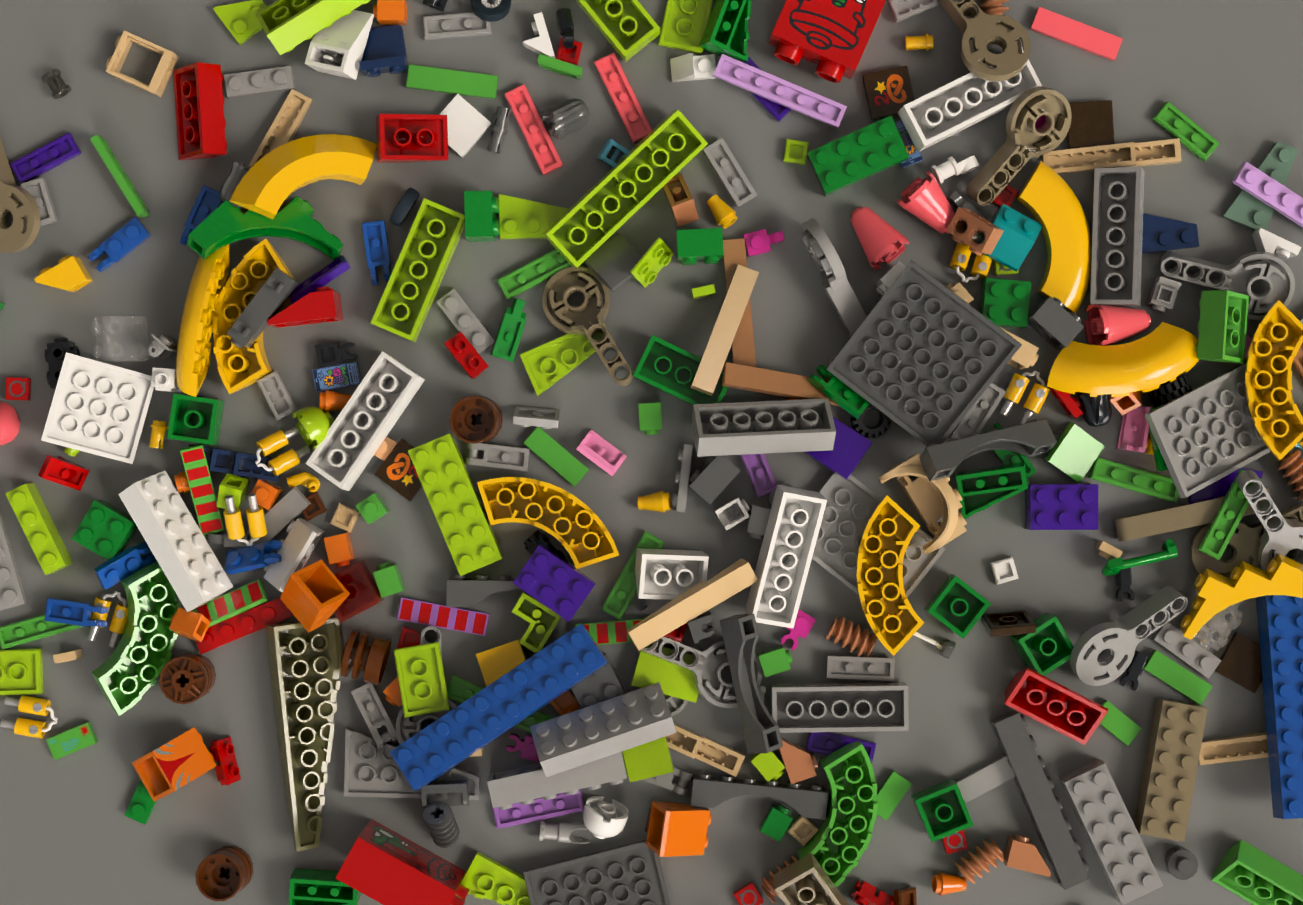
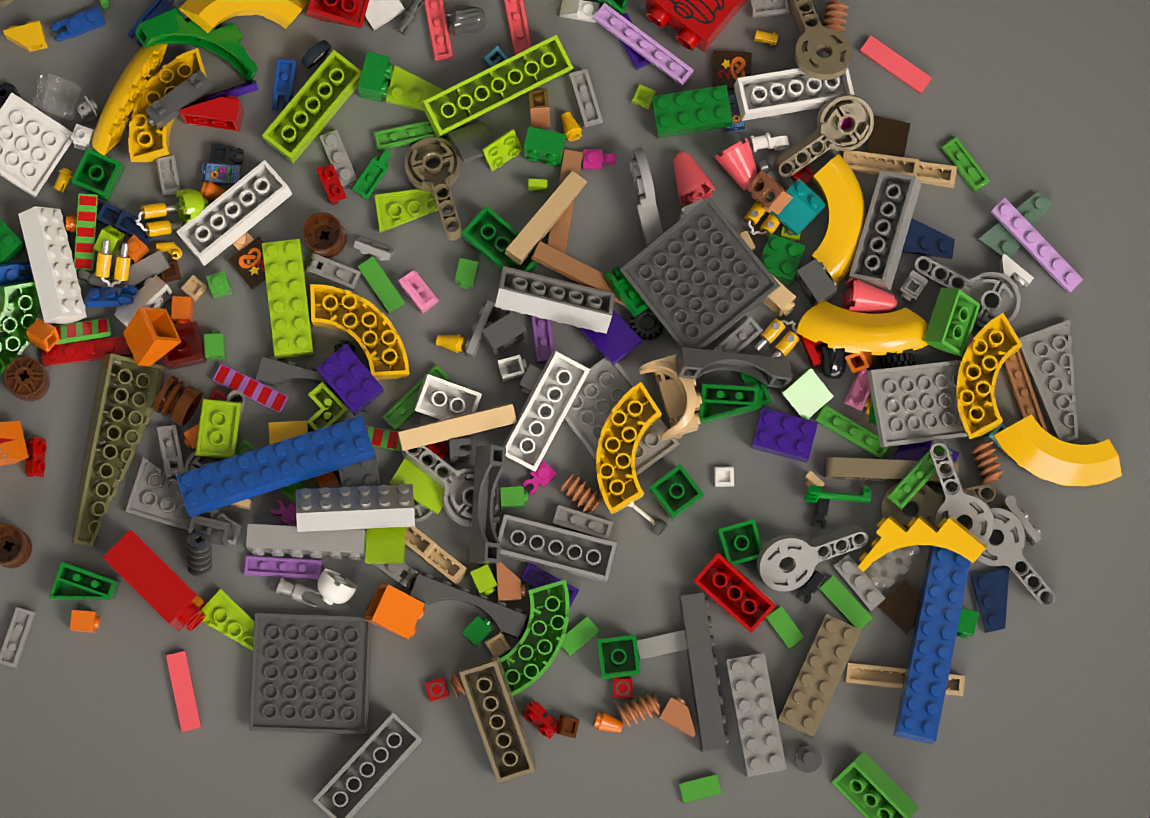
camera: 10 degrees right, 10 degrees down
(1008, 623) = (714, 516): dark brown tile -> none

